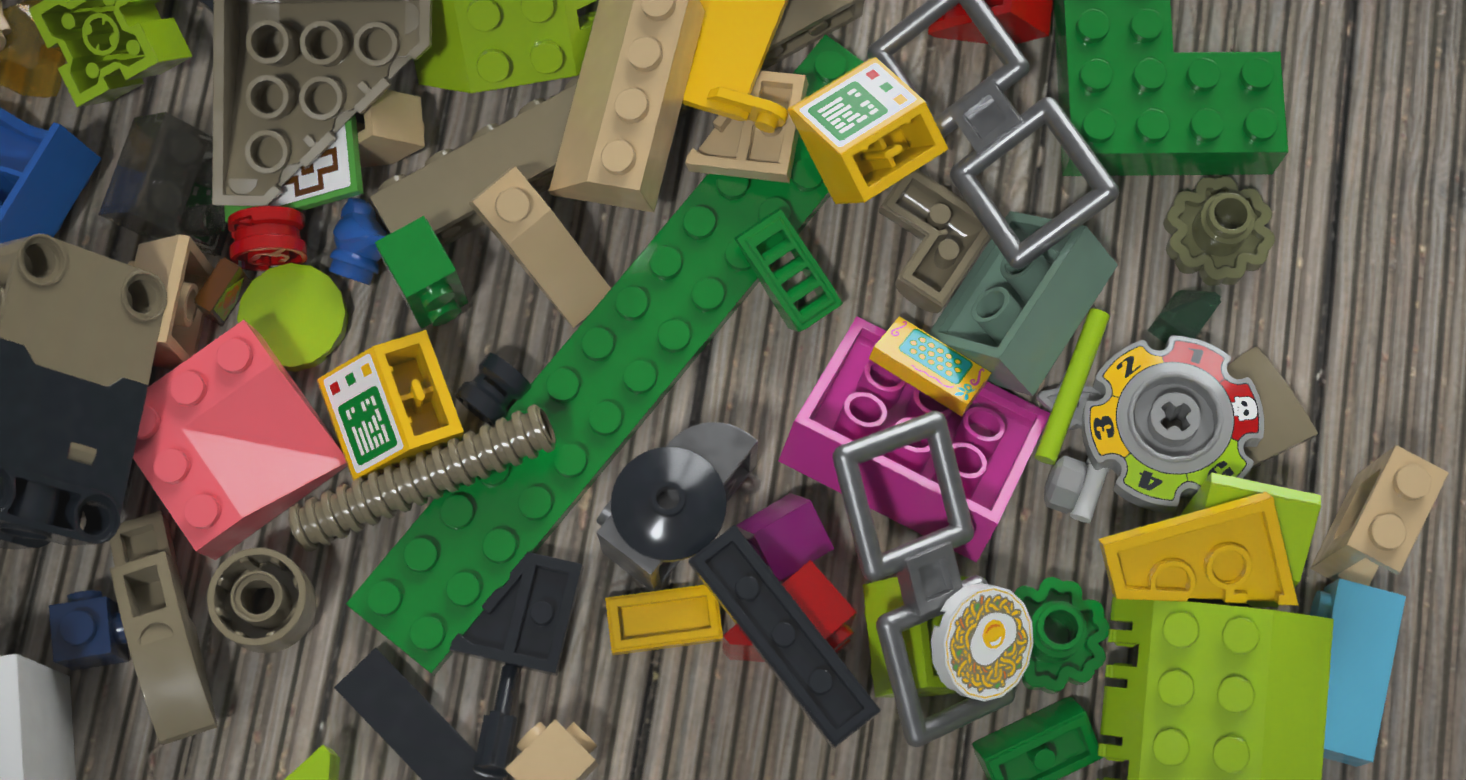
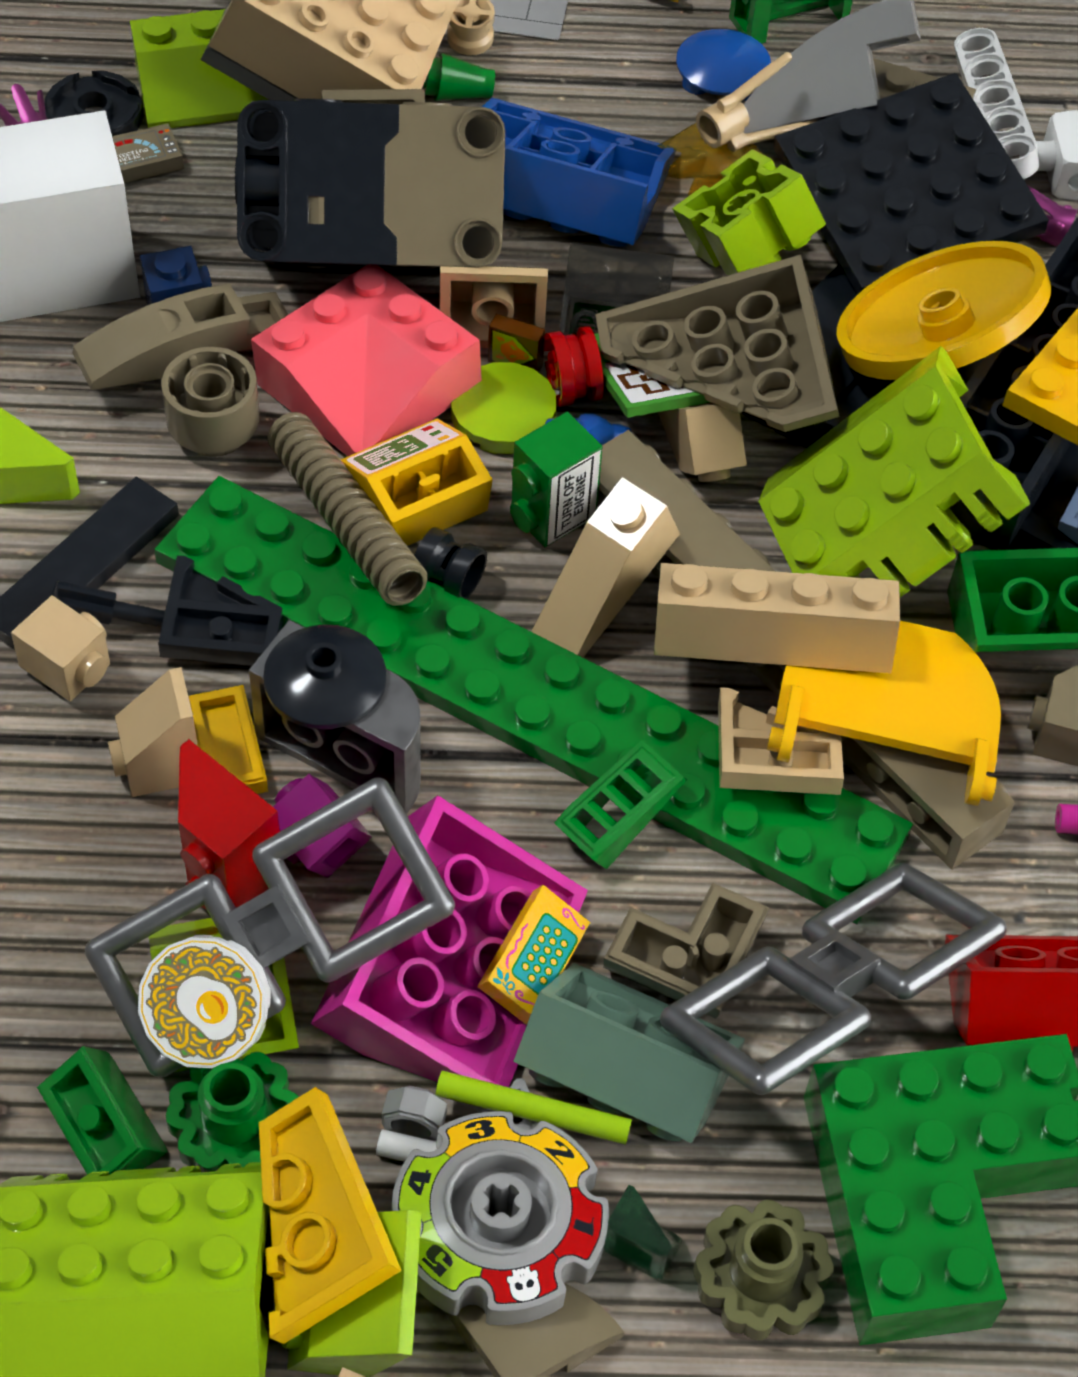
camera: 80 degrees right, 20 degrees down
(674, 678) = (152, 735): none -> tan slope
(784, 636) = (186, 789): black tile -> none
(866, 132) = (791, 842): yellow slope -> none

